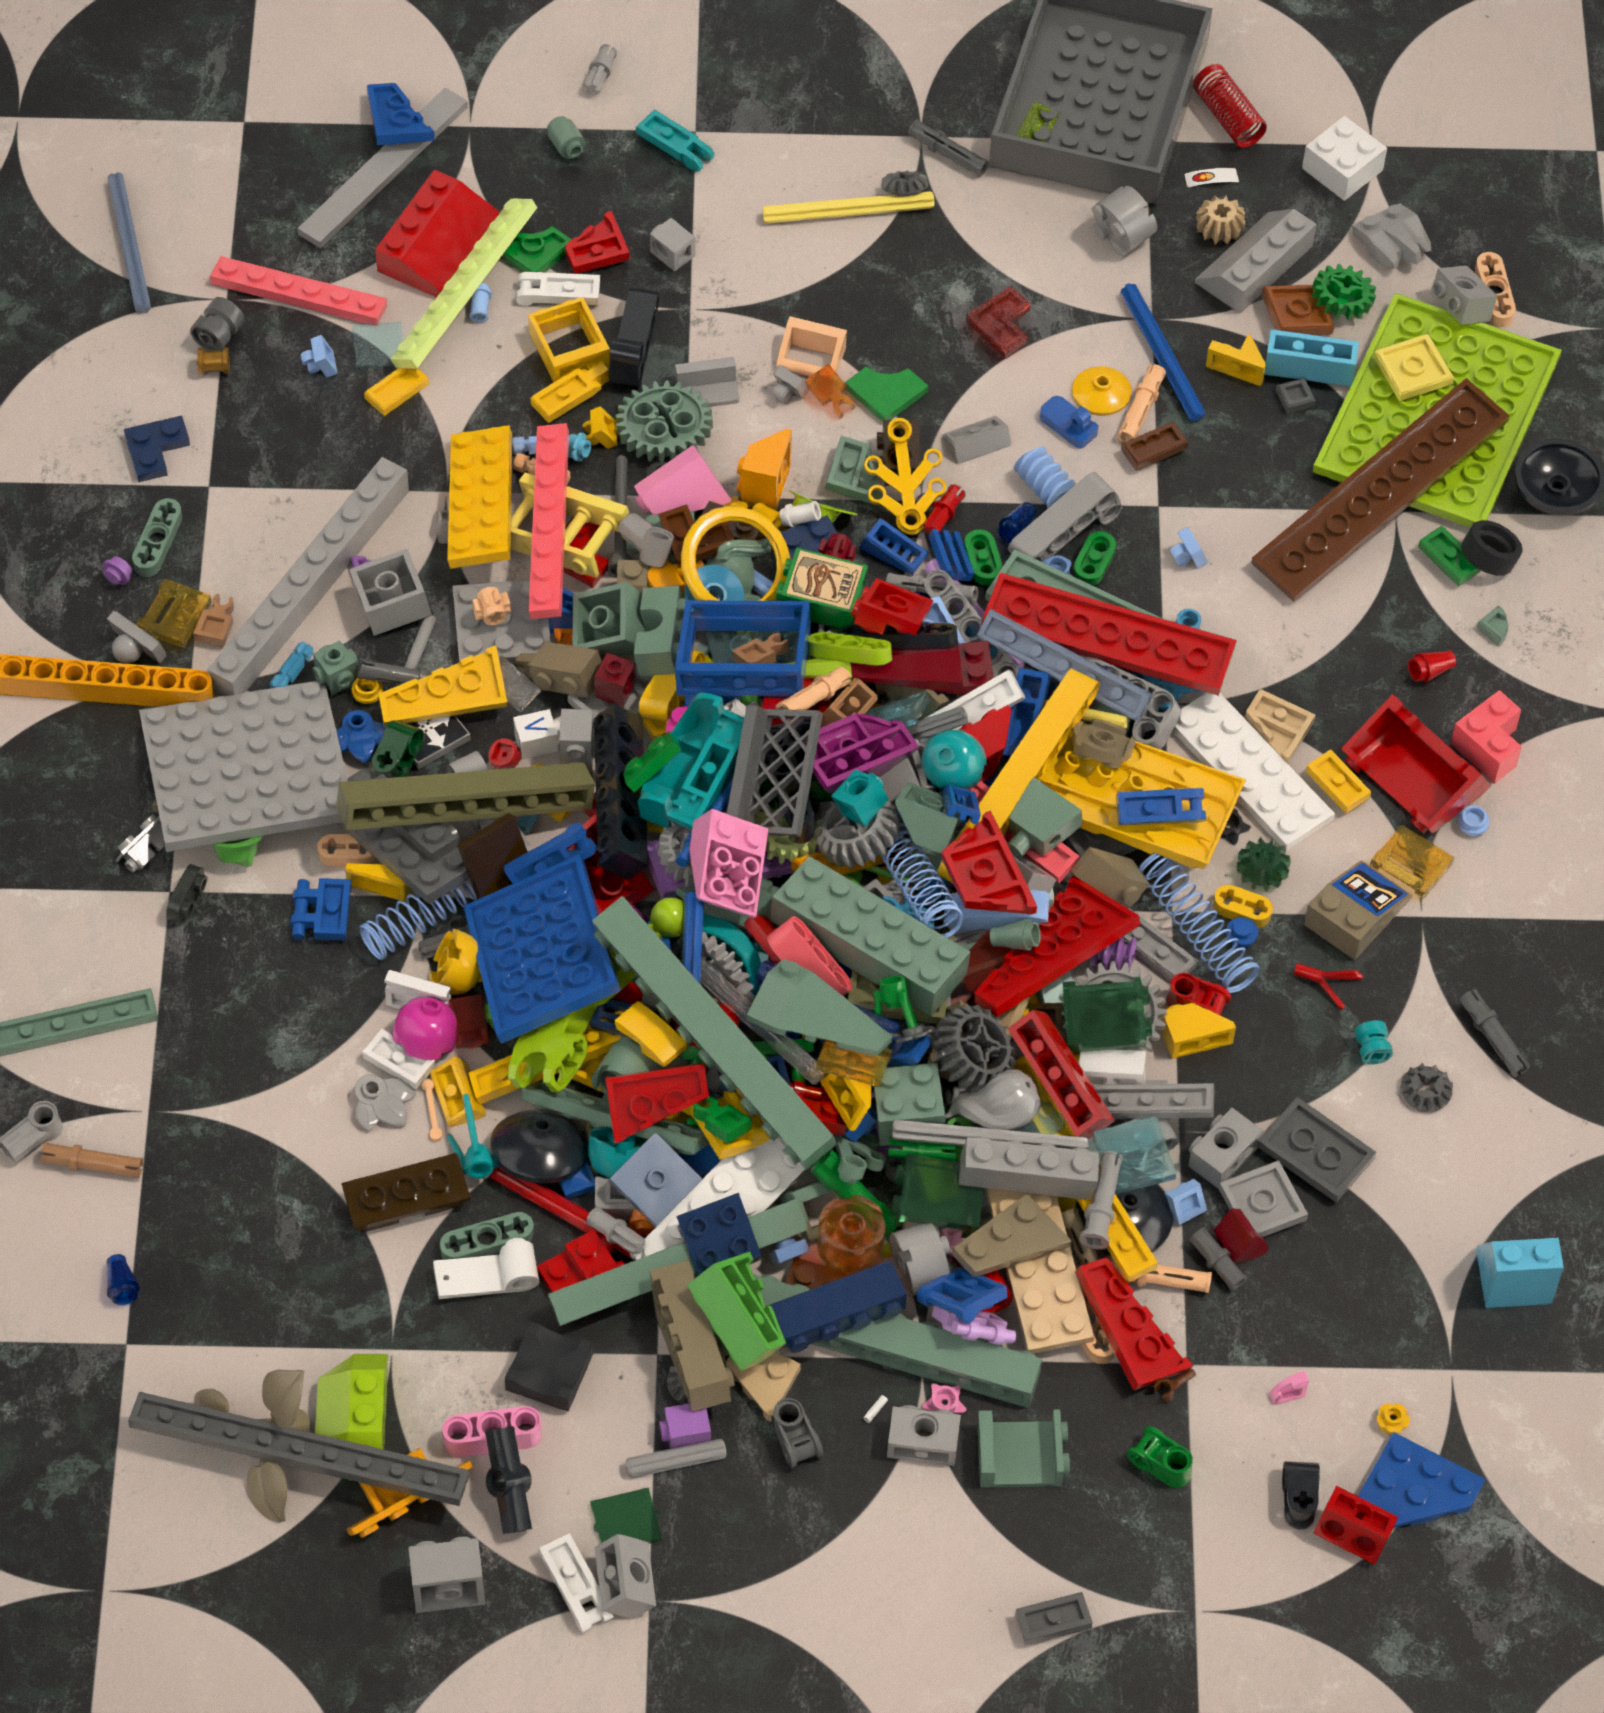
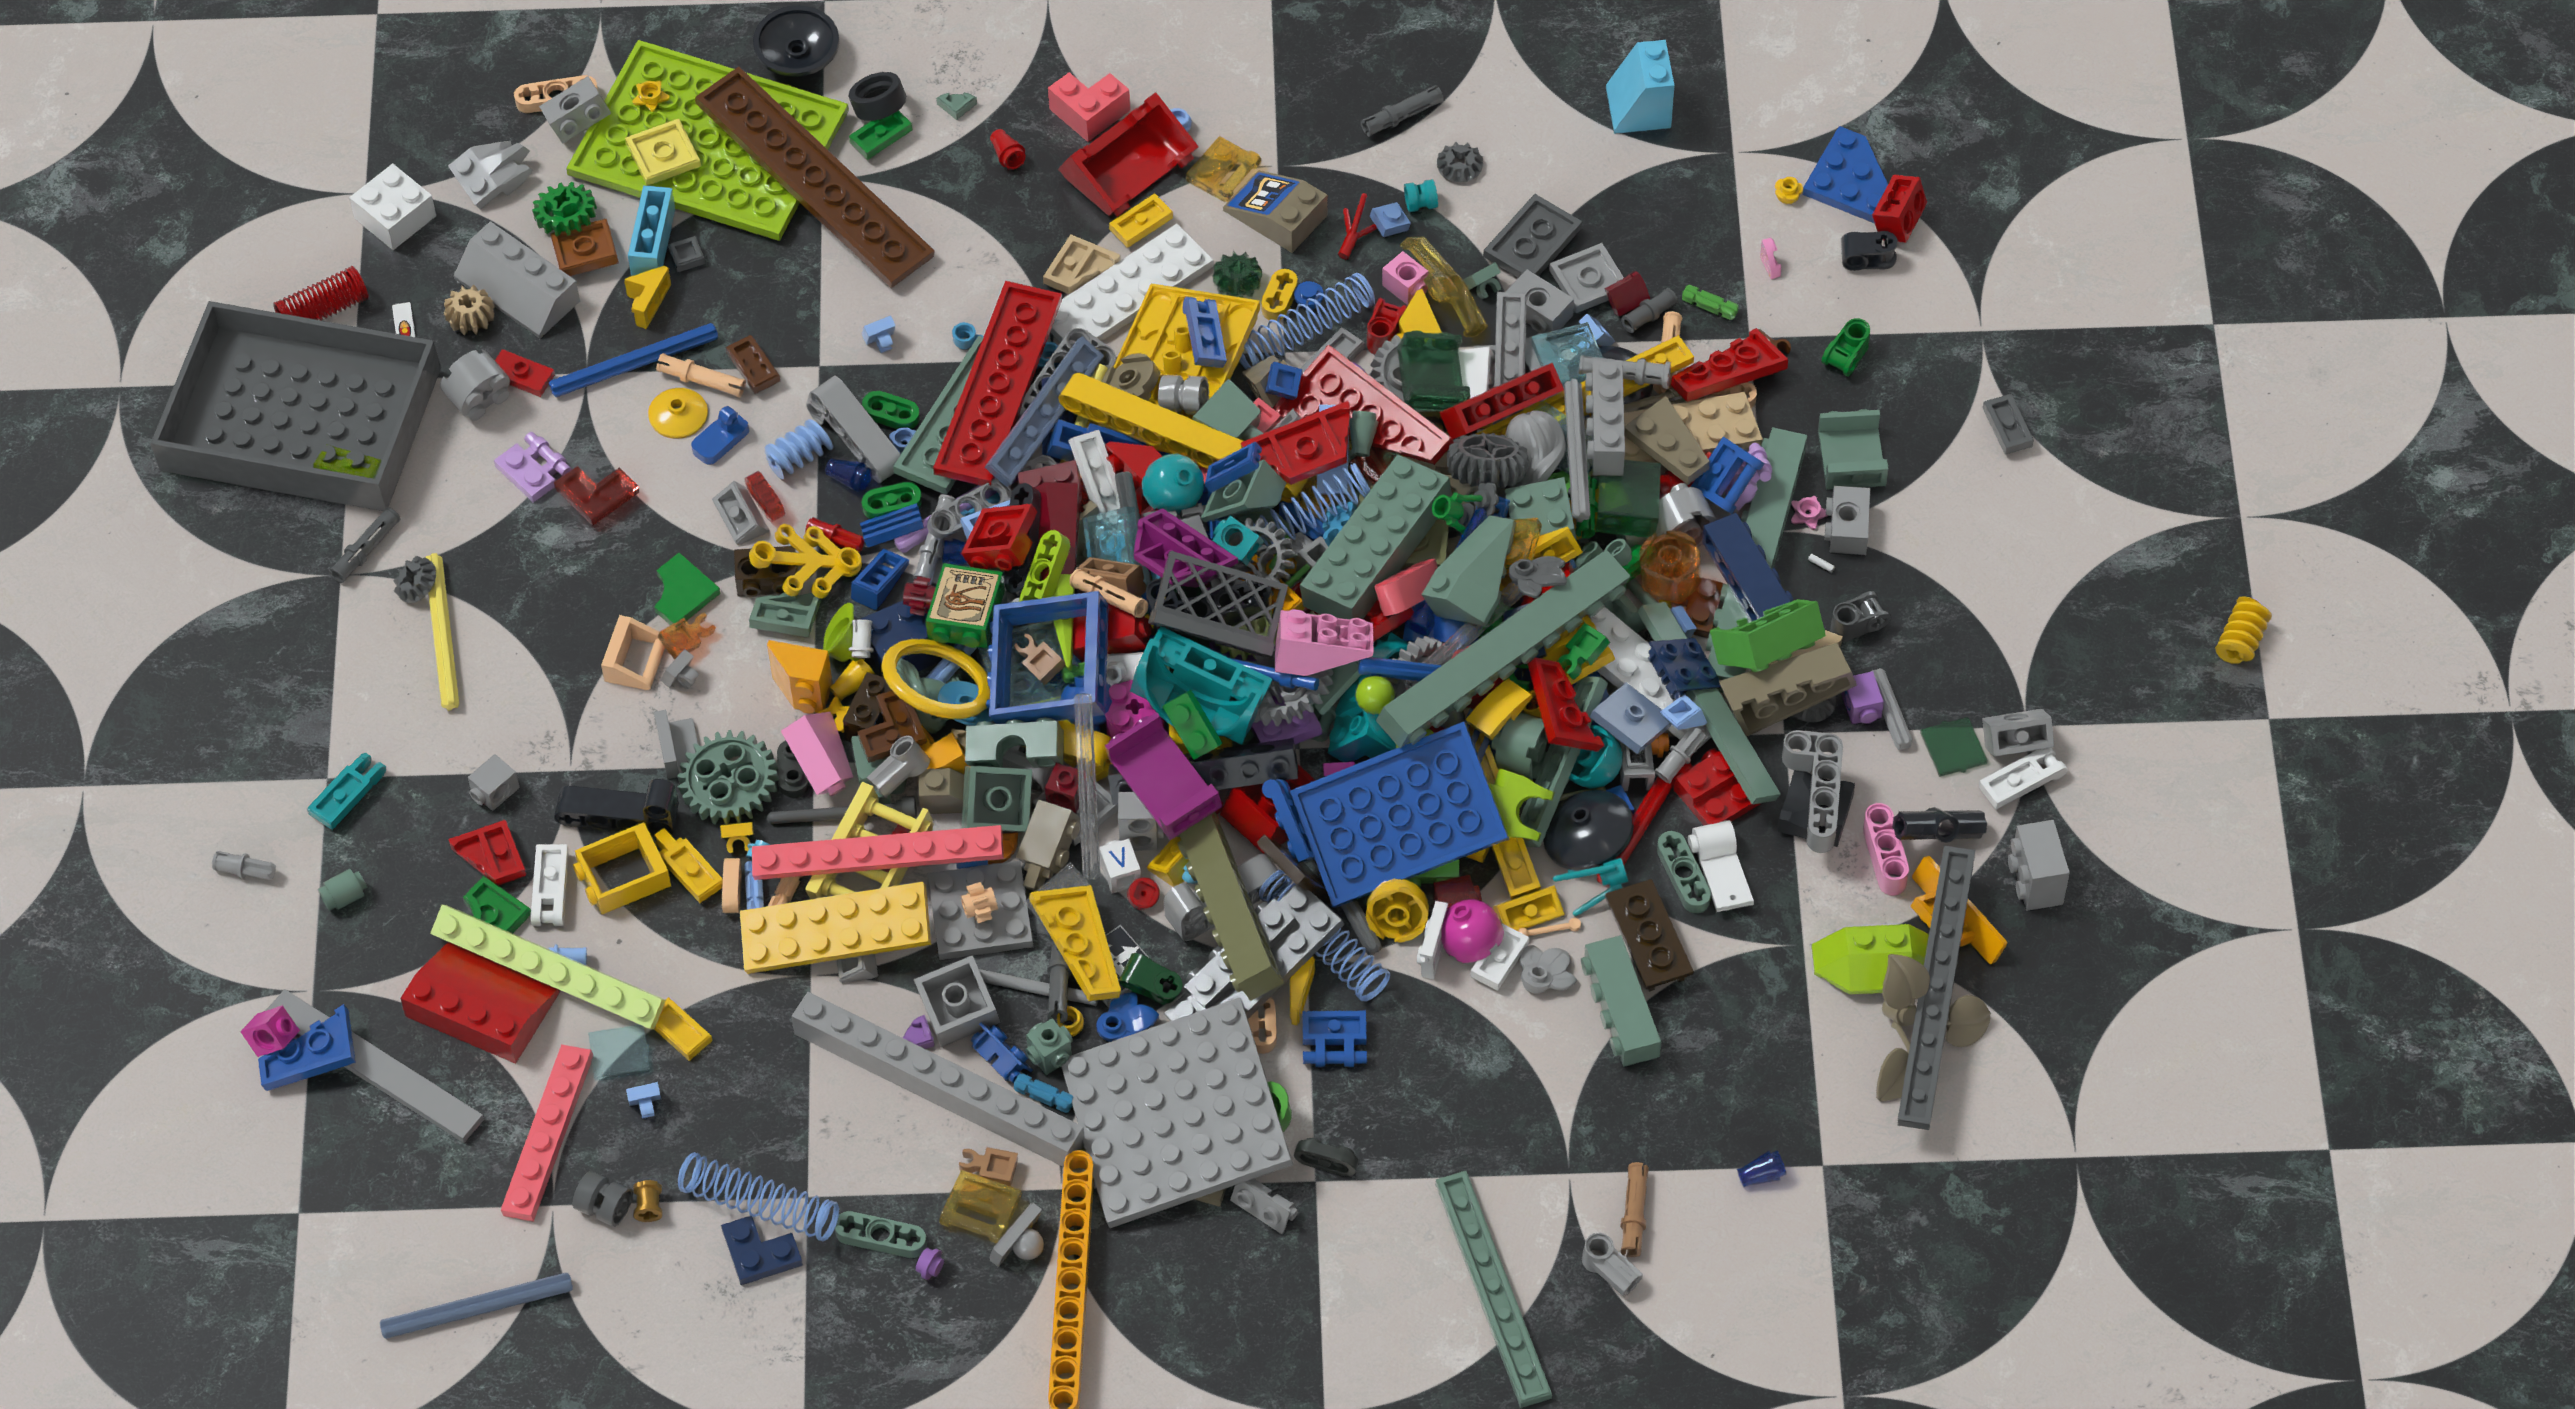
camera: 90 degrees left, 0 degrees up
(165, 472) = (821, 1216): none -> light blue piece
(327, 1160) = (1621, 1000): none -> sand green brick
(347, 629) = (992, 1043): none -> blue hinge
(415, 84) = (270, 1031): none -> dark pink brick
(528, 420) = (731, 885): none -> light nougat beam
(551, 1350) = (1822, 792): none -> light grey beam
(598, 742) = (1162, 776): none -> magenta panel
(610, 682) = (1087, 786): none -> clear axle
(655, 1230) = (1684, 713): none -> light blue slope
(798, 1067) = (1538, 573): none -> dark grey plate
(991, 453) = (764, 496): none -> clear red beam
(1034, 267) = (527, 474): none -> lavender plate
(1076, 777) = (1183, 394): none -> light grey wheel
(1095, 875) = (1283, 380): none -> blue plate
(1149, 264) = (525, 373): none -> red plate
(1231, 1323) = (1710, 302): none -> bright green axle
(1250, 1058) = (1446, 285): none -> clear yellow plate
(1261, 1009) = (1404, 277): none -> bright pink brick
(1261, 1094) = (1482, 278): none -> sand green tile
(1343, 1014) = (1390, 219): none -> medium blue plate
(1490, 351) = (647, 88): none -> yellow plate

